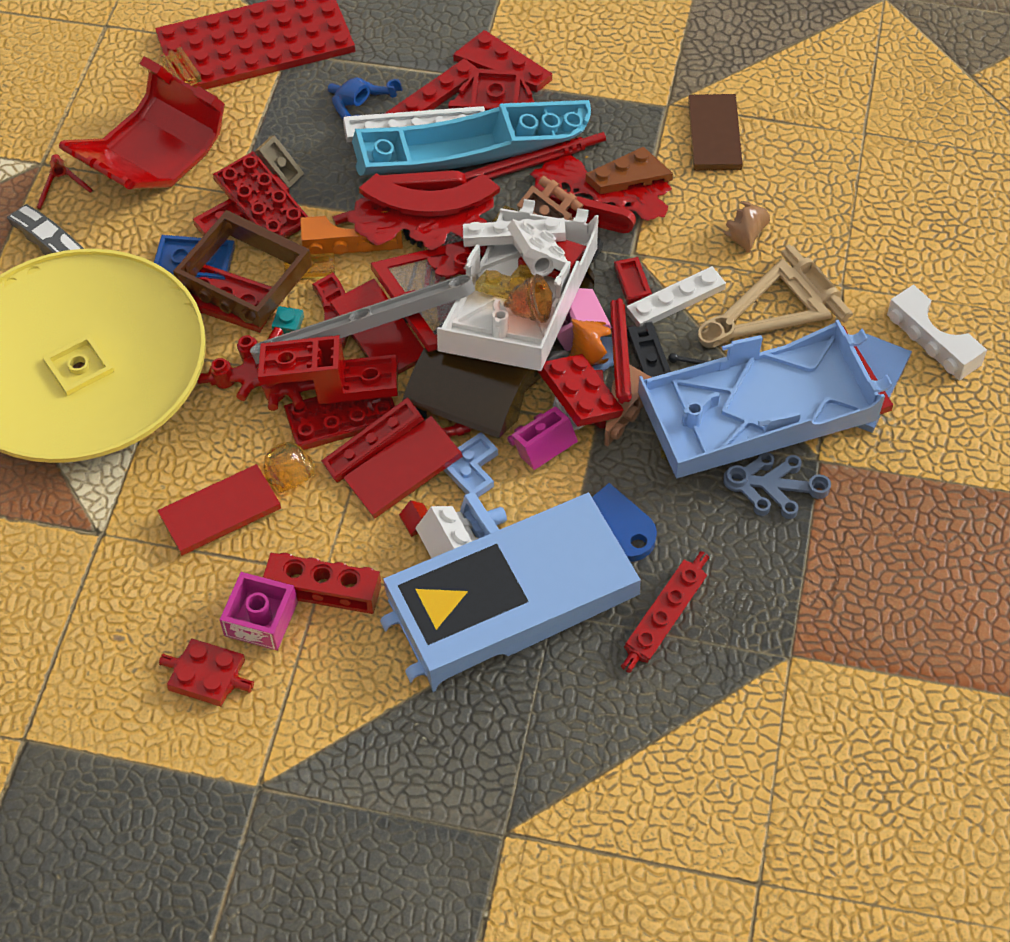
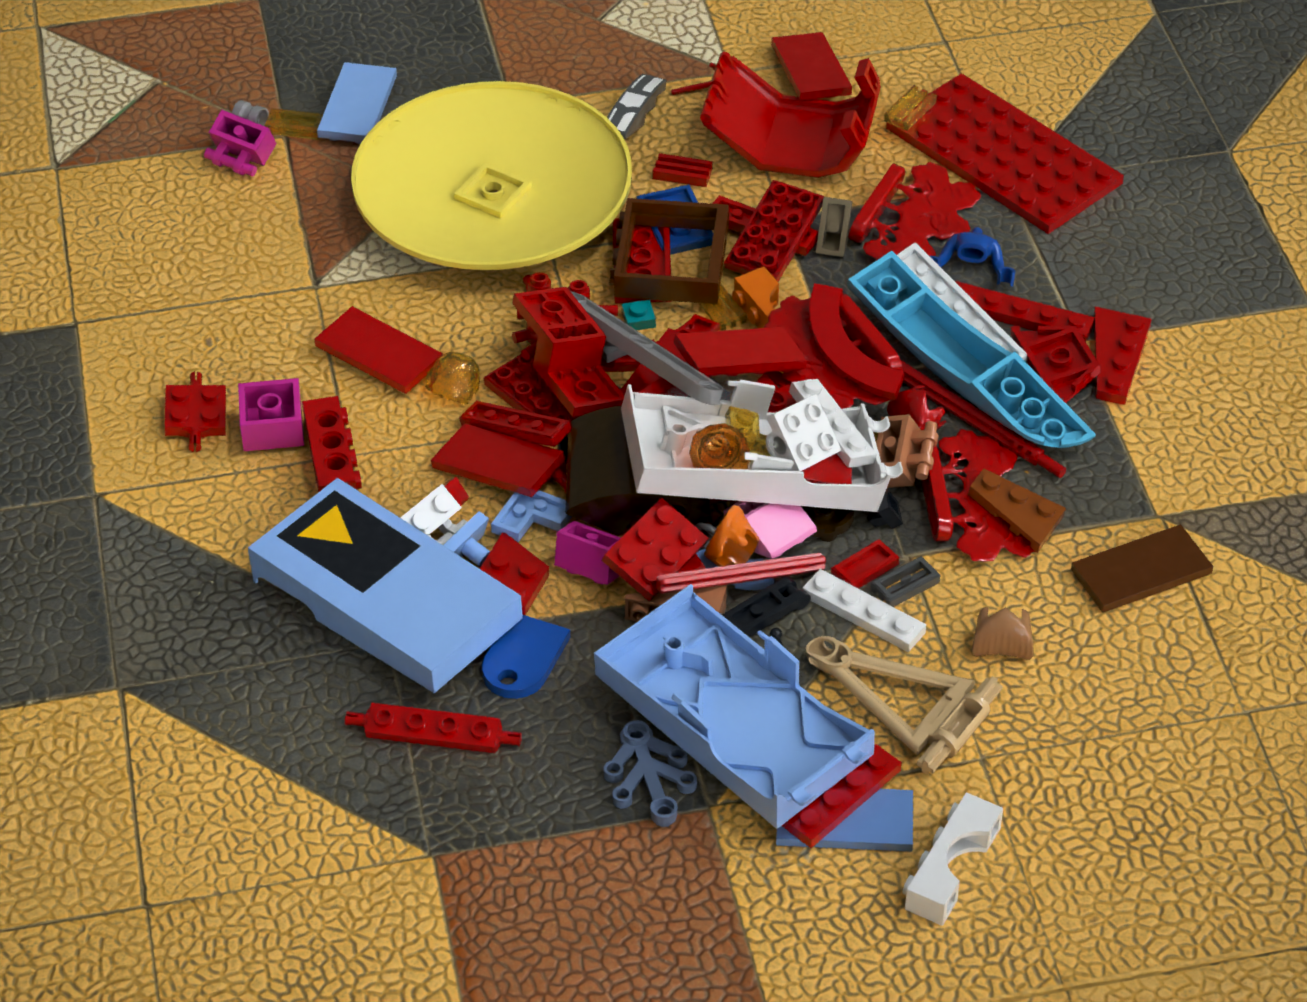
camera: 65 degrees right, 10 degrees down
(81, 109) = (811, 66): none -> red tile
(135, 232) = (682, 170): none -> red tile
(292, 107) = (921, 216): none -> red plant
(406, 259) = (740, 351): none -> red tile
(511, 188) = (915, 404): none -> red hair
(525, 497) = (516, 569): none -> red wing
(664, 278) = (909, 585): none -> dark grey tile

